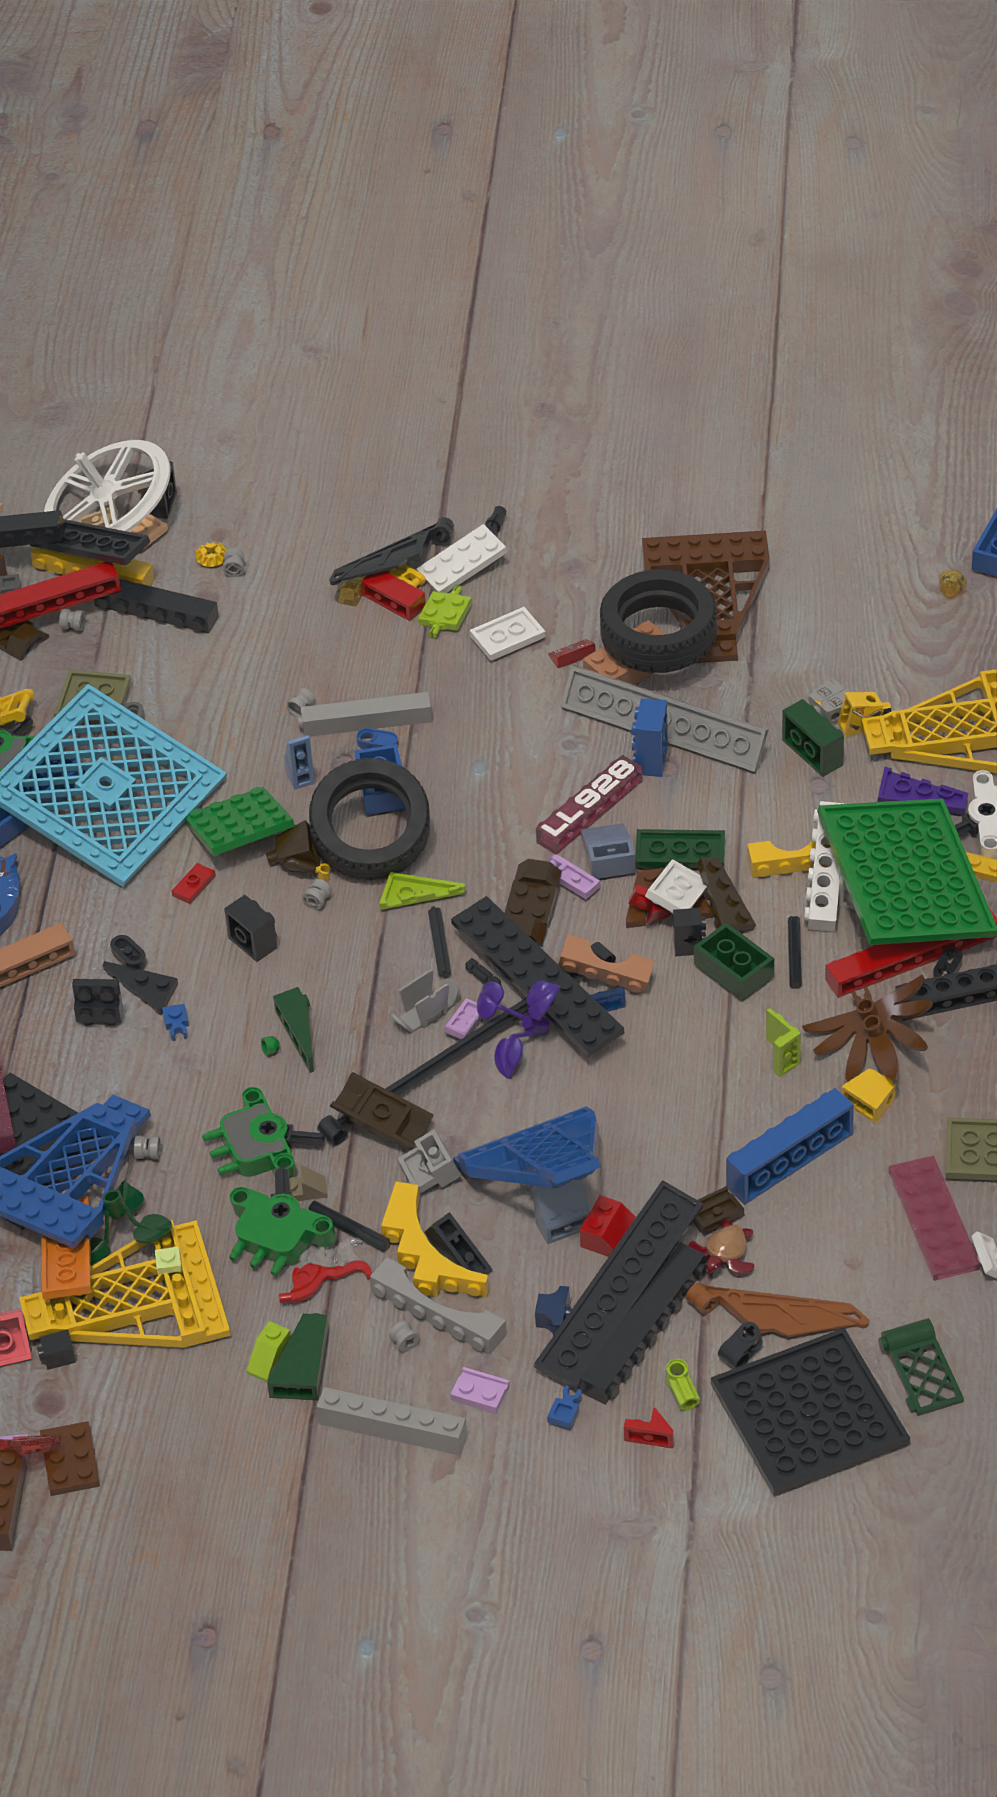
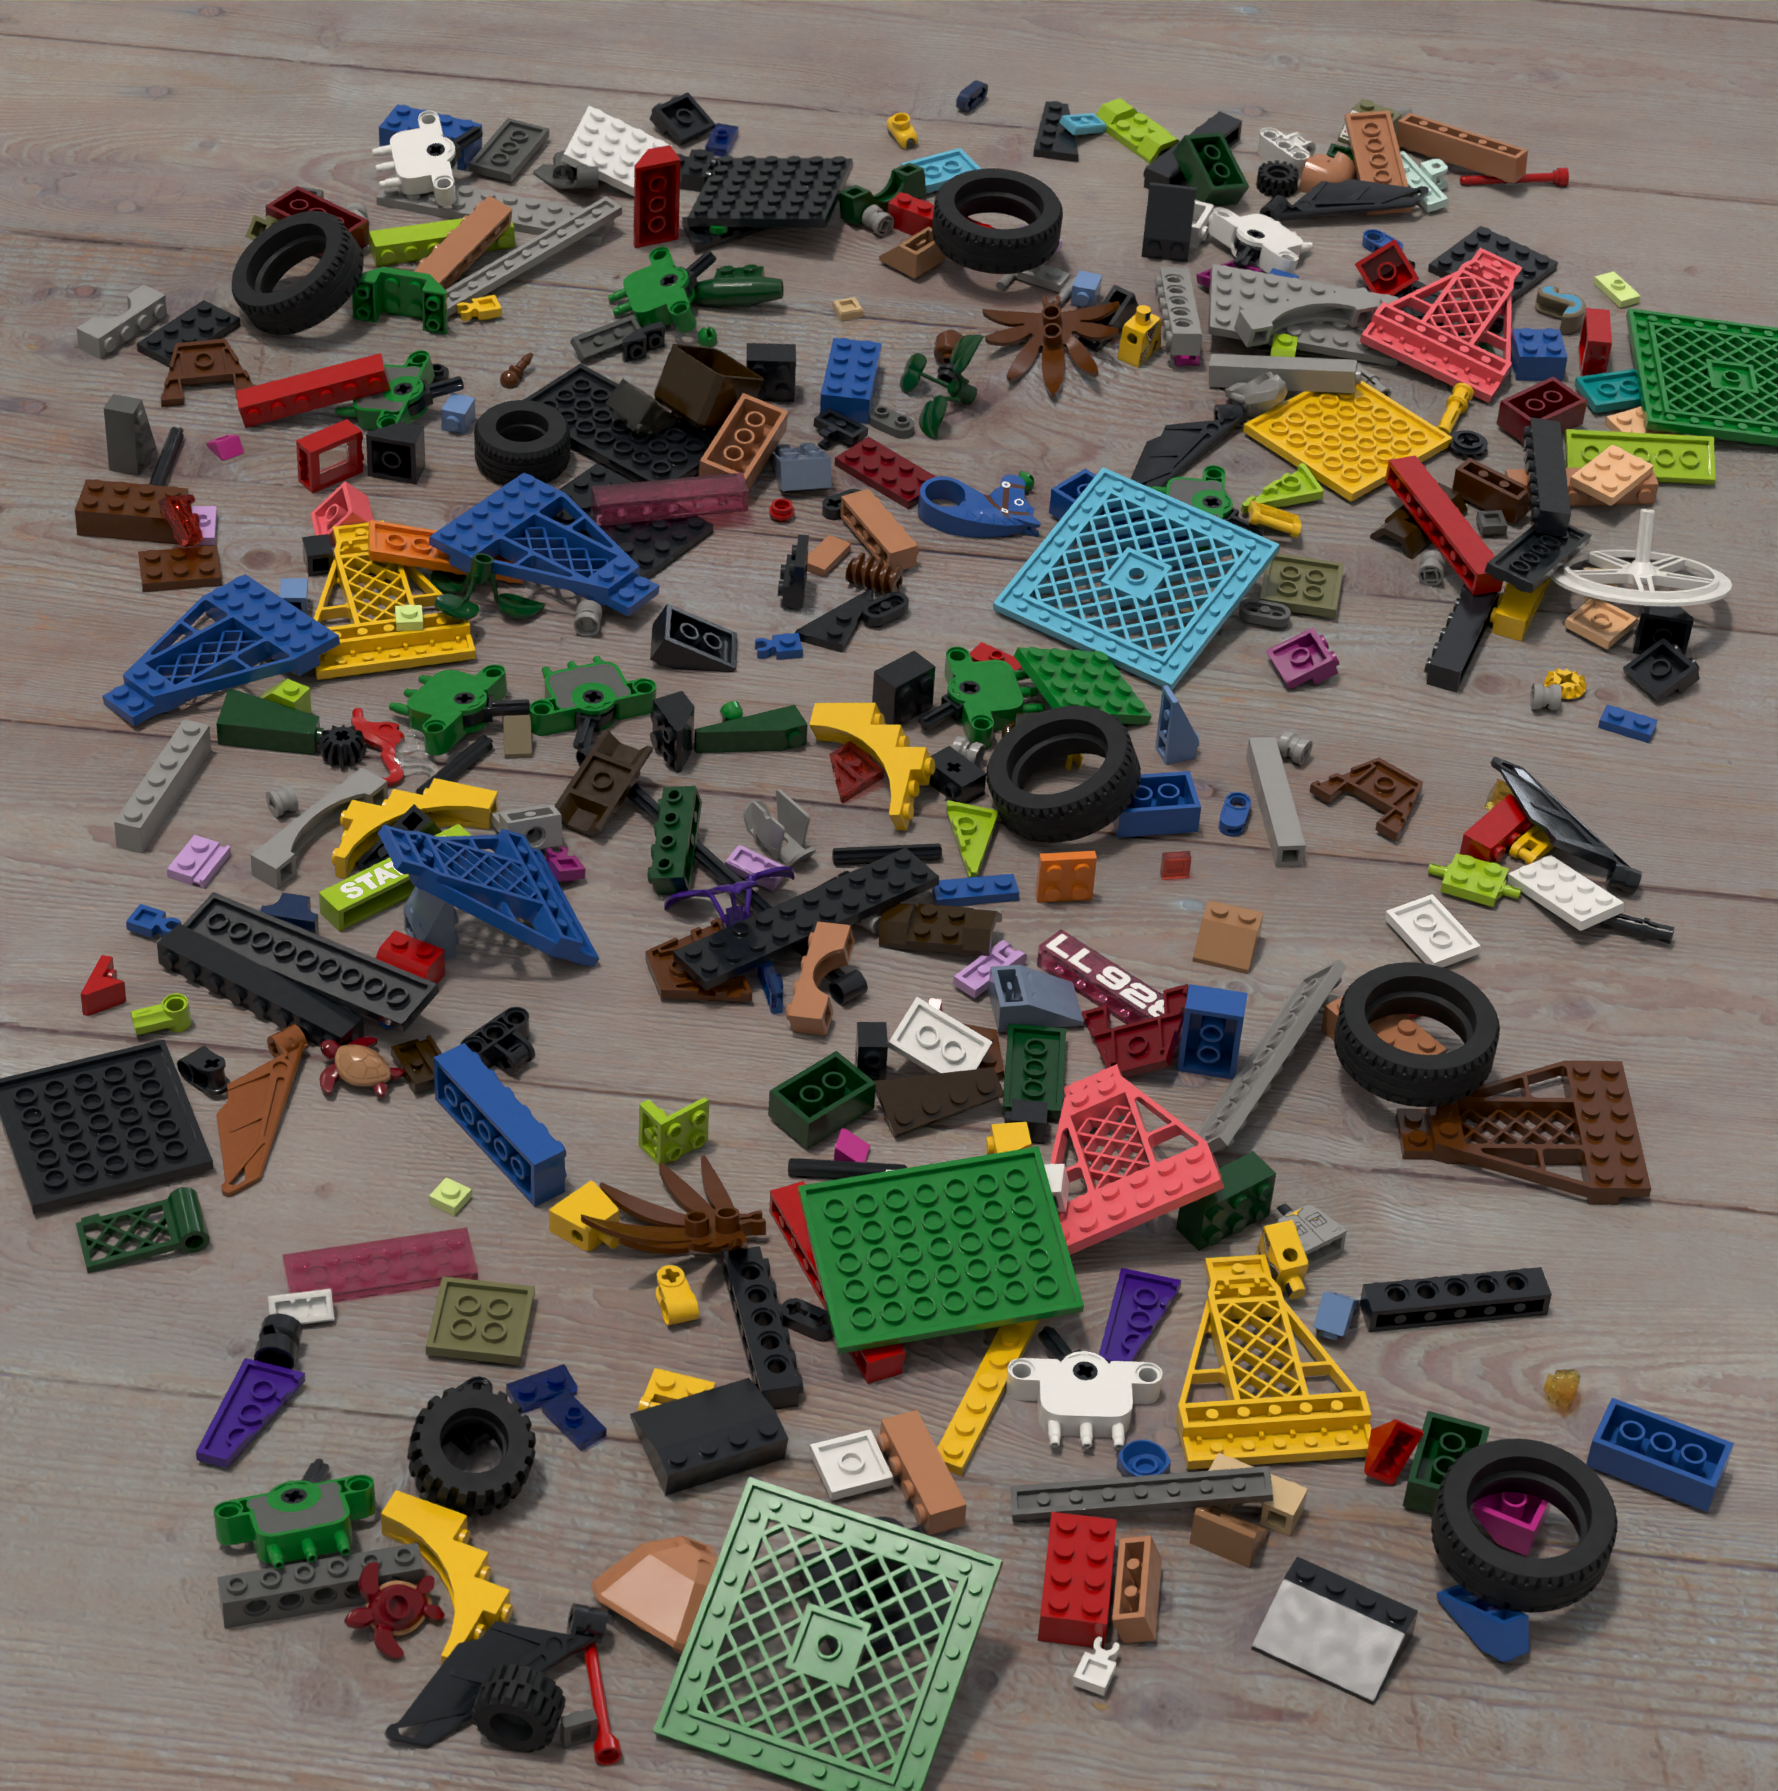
camera: 85 degrees right, 5 degrees down
(50, 996) = (827, 555): none -> nougat tile
(87, 956) = (874, 576): none -> reddish brown piece
(121, 1360) = (295, 592): none -> medium blue brick
(177, 1362) = (247, 631): none -> blue wing
(180, 1076) = (691, 642): none -> black slope
(193, 695) = (1304, 659): none -> magenta plate
(202, 497) = (1662, 670): none -> black plate
(251, 877) = (980, 696): none -> green piece
(257, 523) = (1627, 723): none -> blue plate
(311, 1070) = (673, 728): none -> black slope
(328, 933) = (886, 744): none -> yellow arch
(329, 1300) = (342, 746): none -> black gear
(341, 965) = (853, 771): none -> clear red wing
(345, 654) = (1379, 785): none -> reddish brown wing
(347, 900) = (957, 776): none -> black brick
(445, 770) = (1175, 865): none -> clear red tile
(450, 1060) = (675, 840): none -> dark green brick
(470, 1139) = (565, 867): none -> magenta plate
(476, 882) = (976, 890): none -> blue plate
(477, 825) = (1065, 876): none -> orange plate
(499, 1246) = (369, 891): none -> lime brick
(525, 741) = (1228, 936): none -> medium nougat slope
(574, 1062) = (677, 984): none -> reddish brown wing
(654, 786) = (1140, 1044): none -> dark red wing
(688, 1162) = (503, 1040): none -> black piece
(736, 849) = (1031, 1112): none -> black brick
(776, 950) = (850, 1147): none -> dark pink slope
(834, 766) = (1145, 1187): none -> coral wing
(853, 1182) = (450, 1196): none -> yellowish green plate
(878, 632) = (1455, 1299): none -> black brick
(902, 689) = (1335, 1314): none -> medium blue slope
(944, 1037) = (675, 1296): none -> yellow piece

